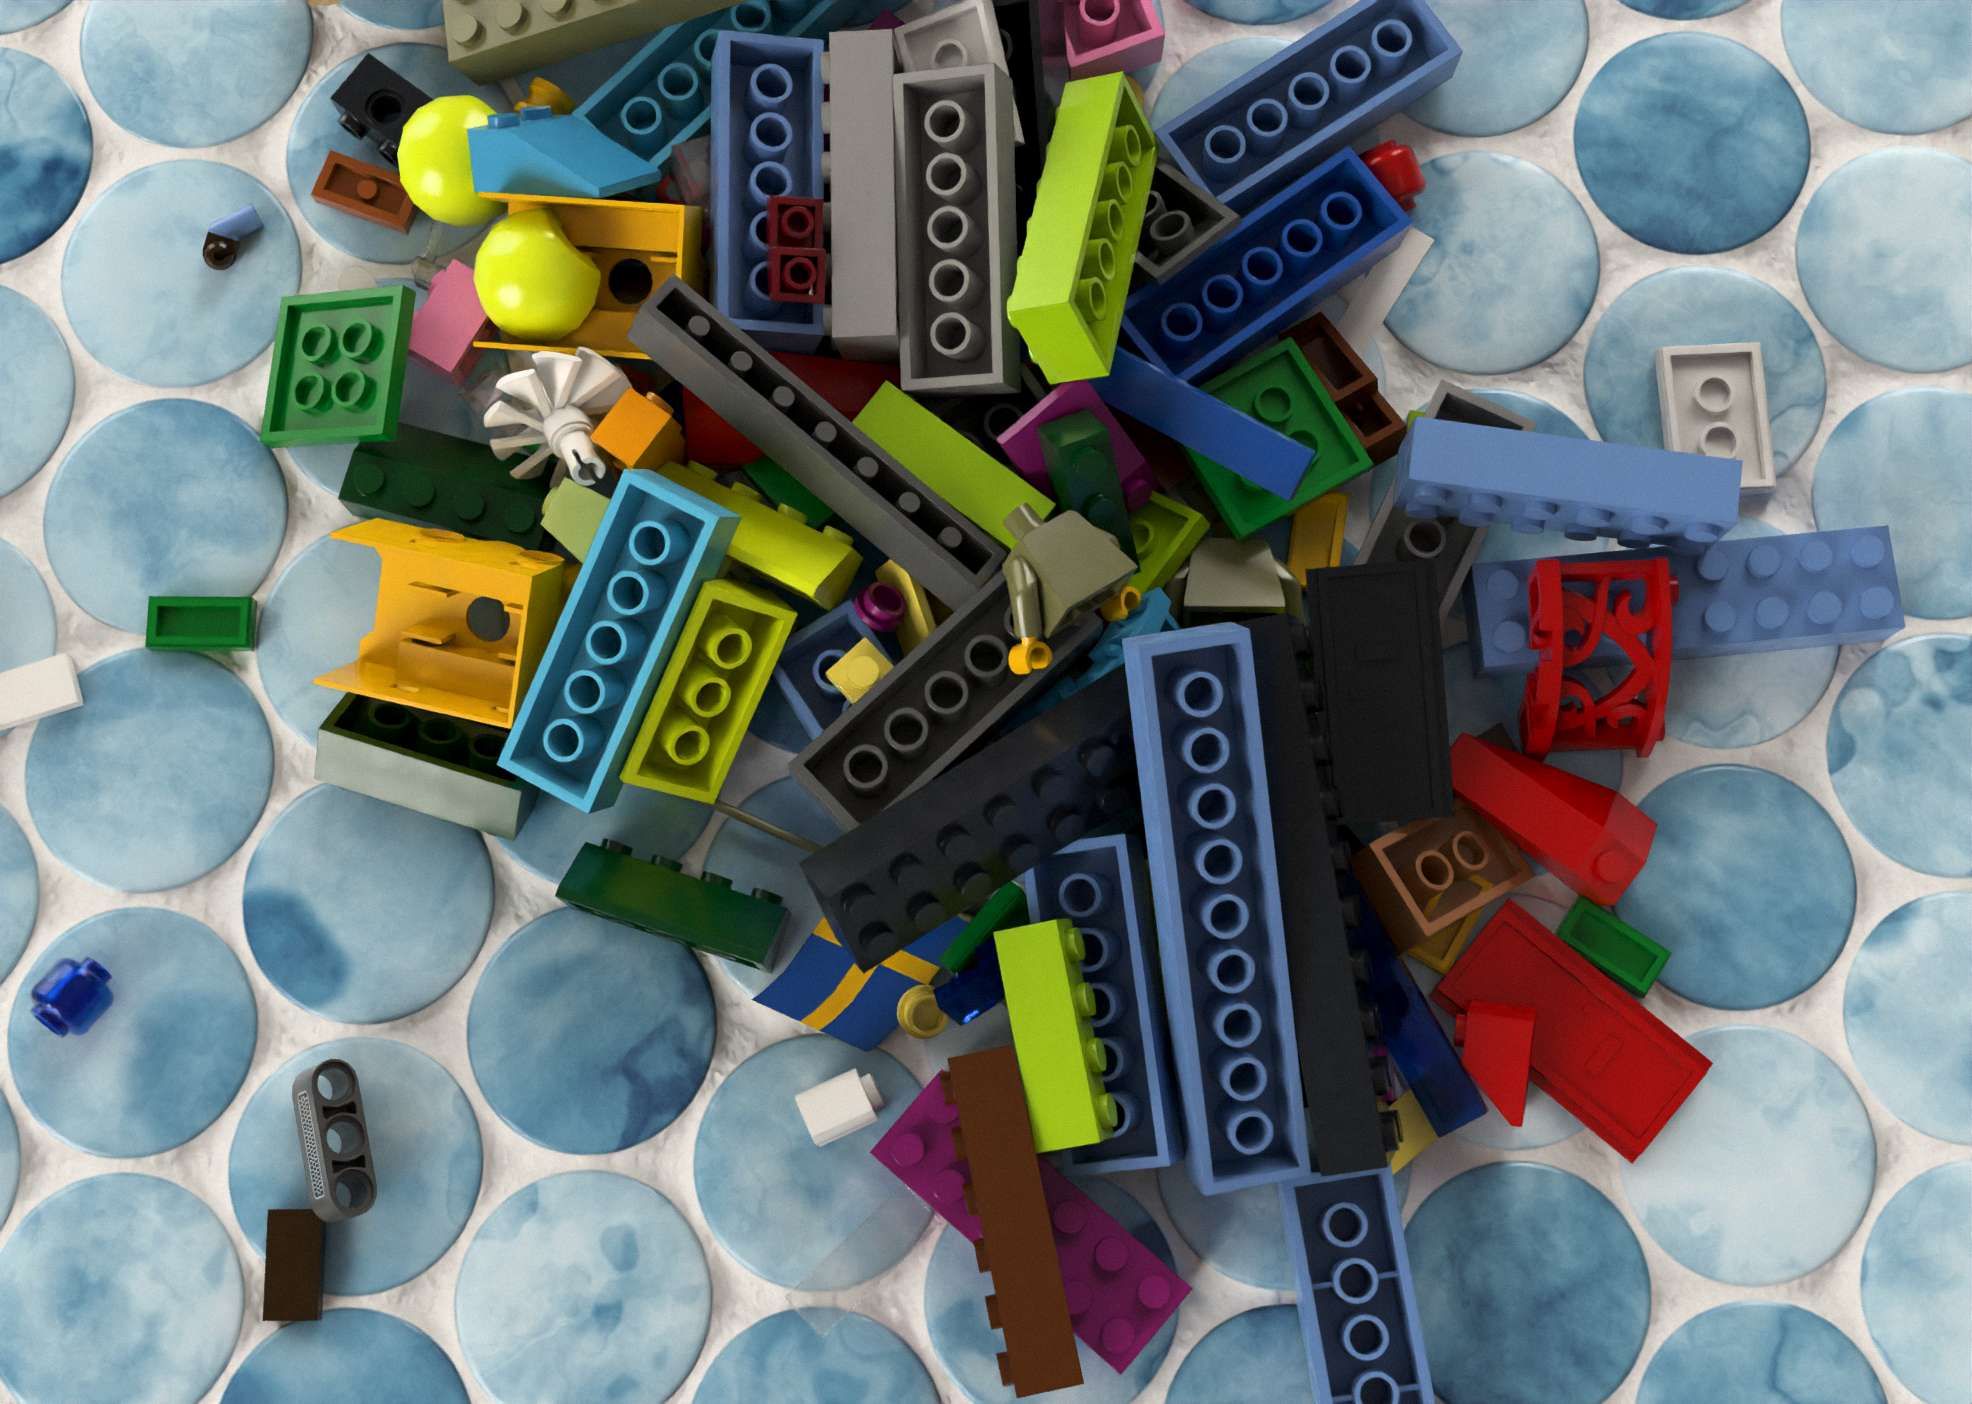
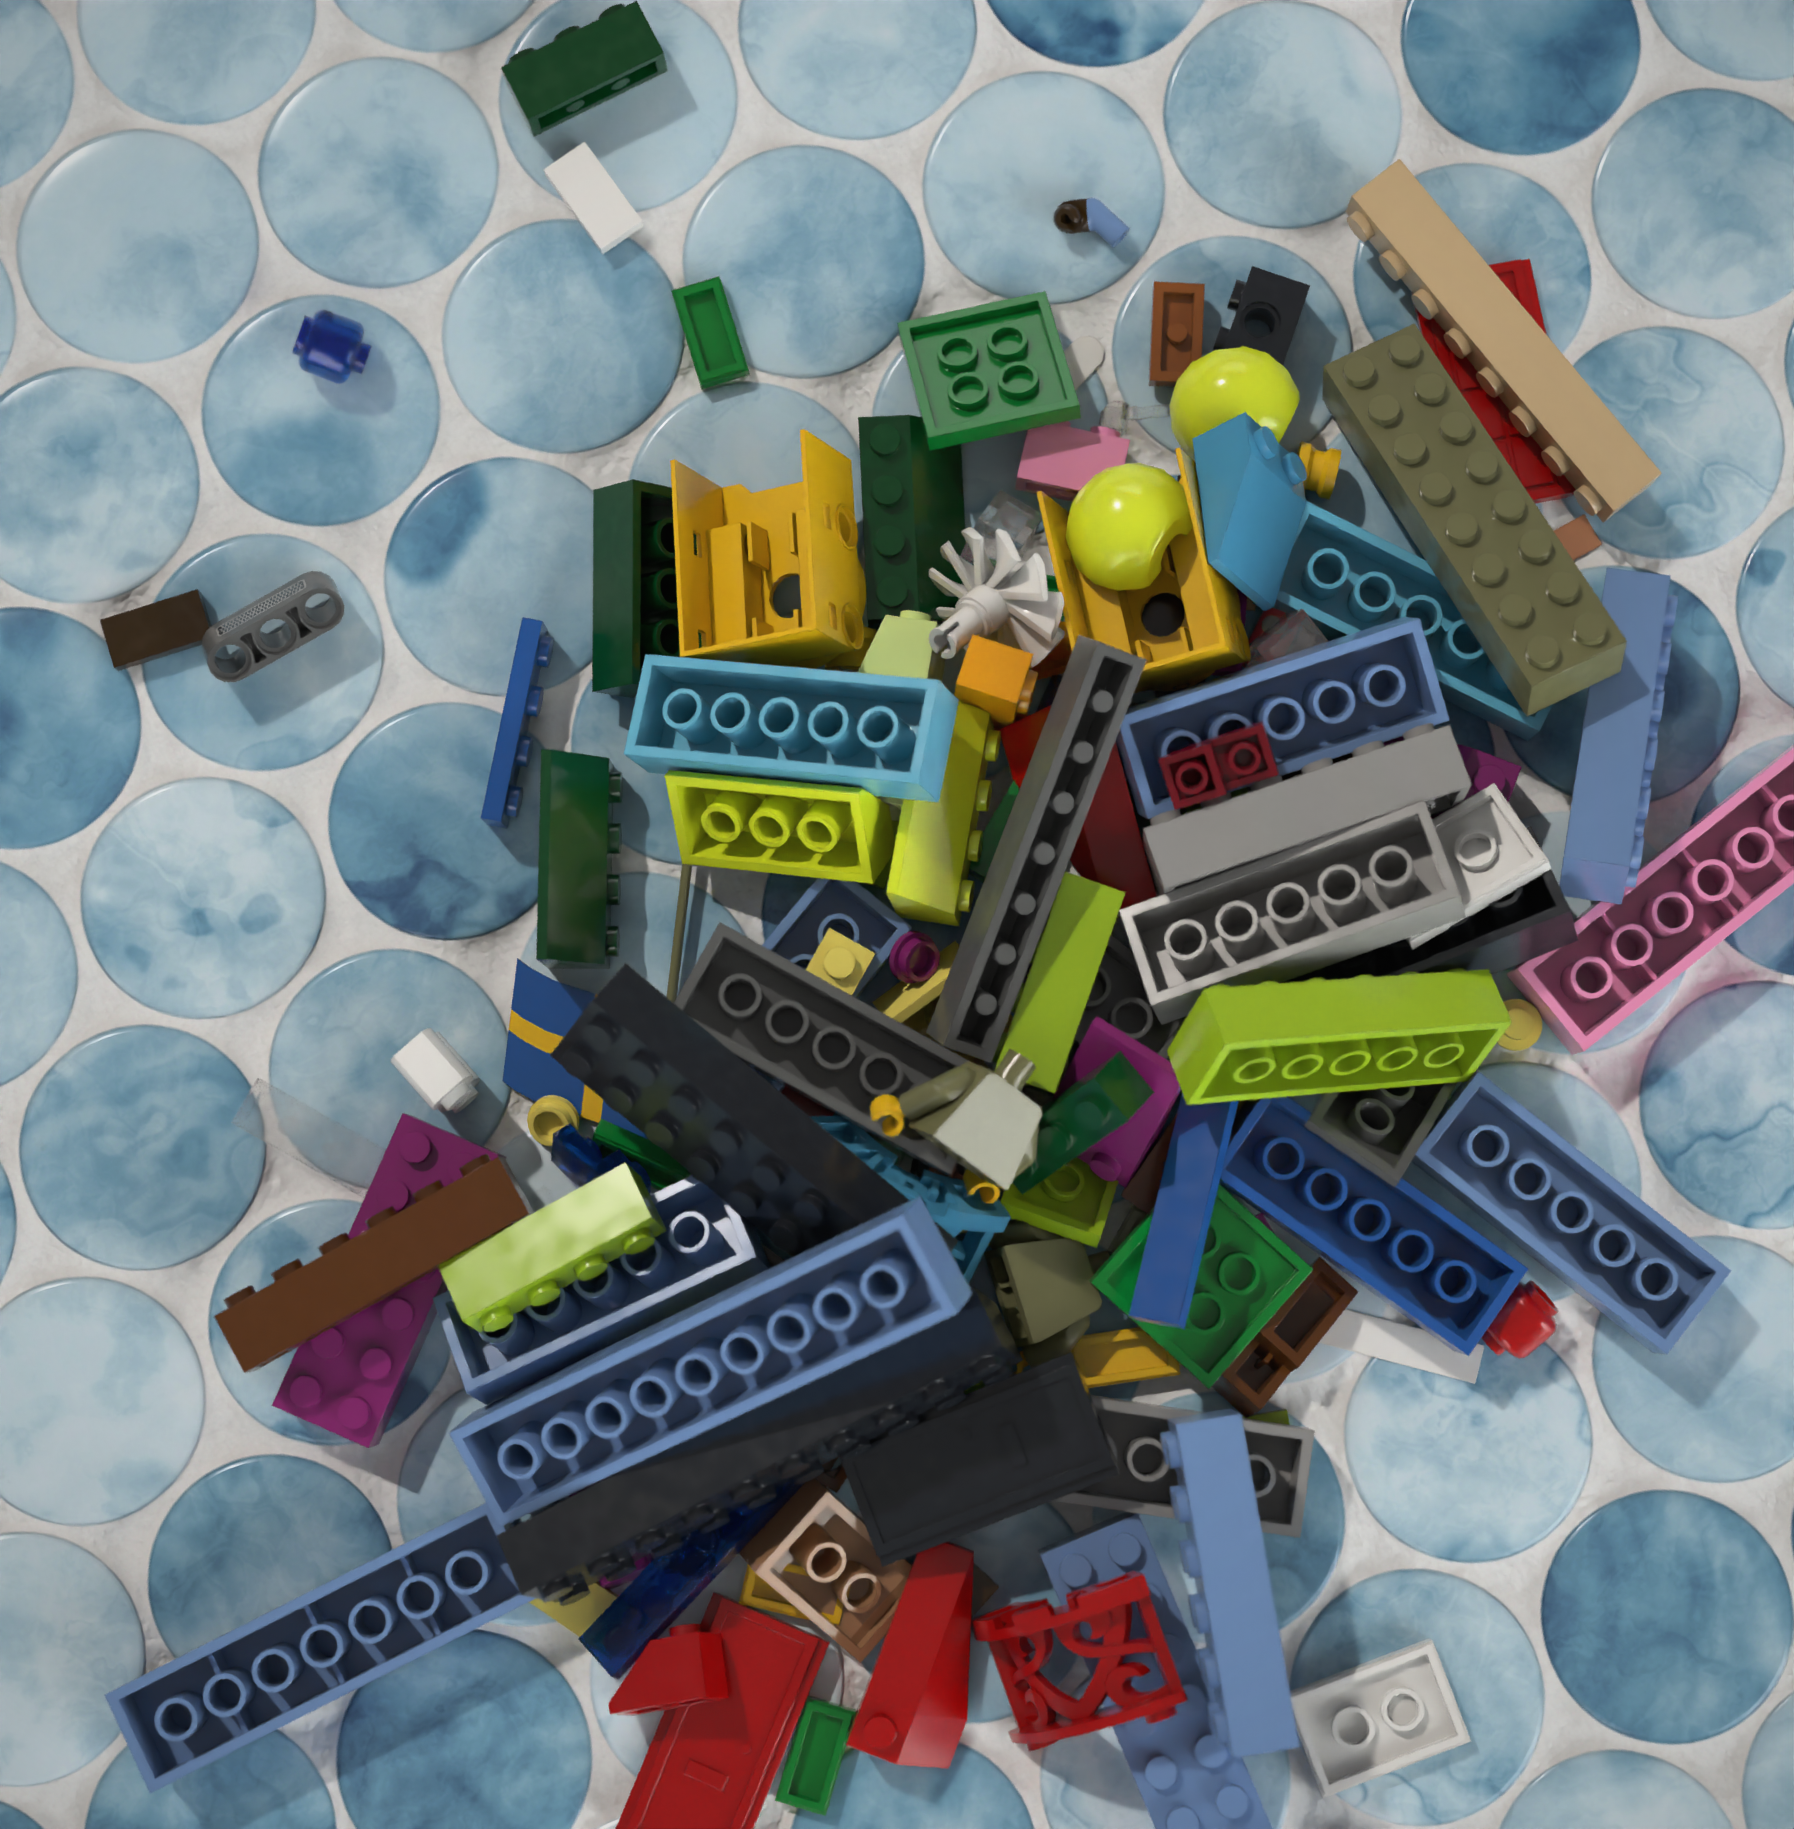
camera: 75 degrees right, 5 degrees up
(500, 913) = (521, 702): none -> blue plate

